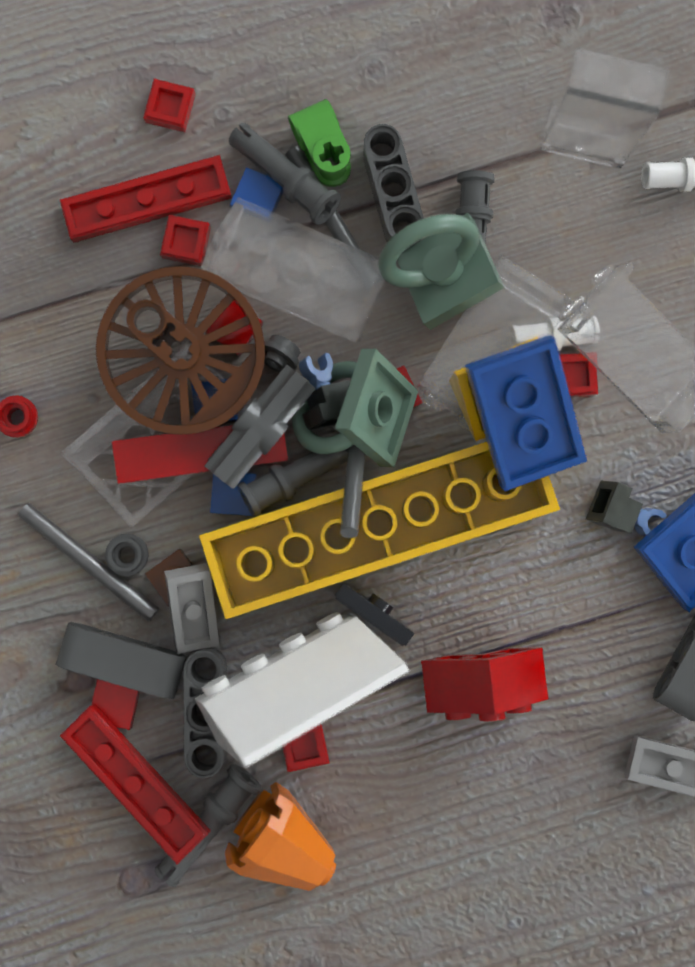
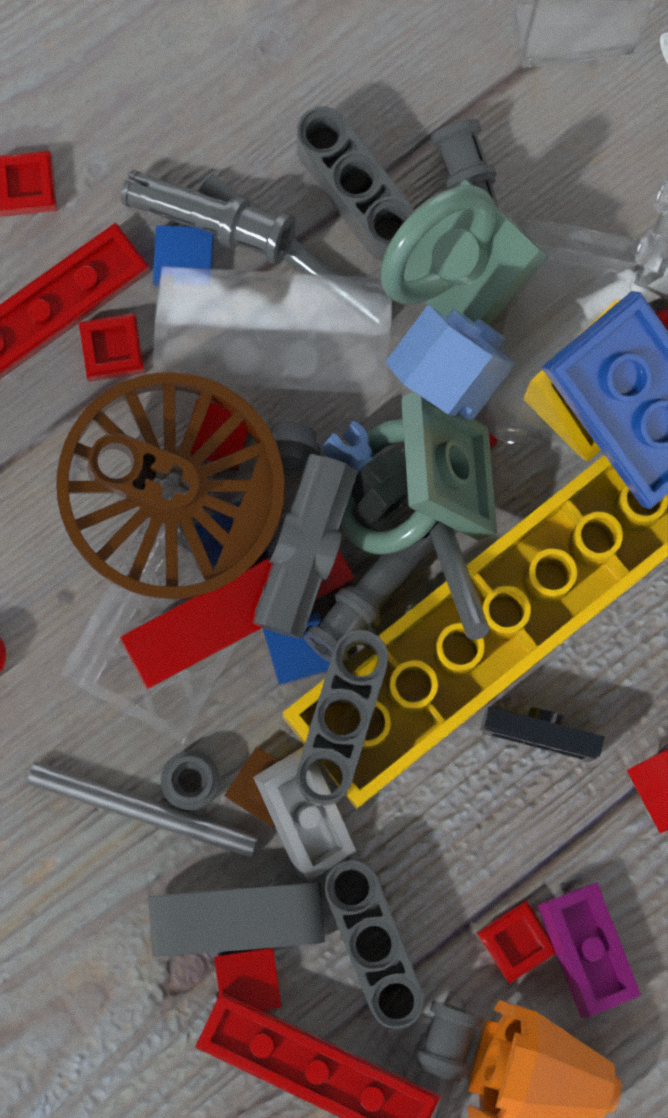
camera: 25 degrees left, 5 degrees down
(214, 566) = (342, 688): none -> dark grey beam
(297, 687) = (482, 855): white slope -> none
(321, 138) = (237, 152): bright green piece -> none
(349, 771) = (589, 950): none -> magenta plate
(405, 337) = (451, 361): none -> medium blue brick

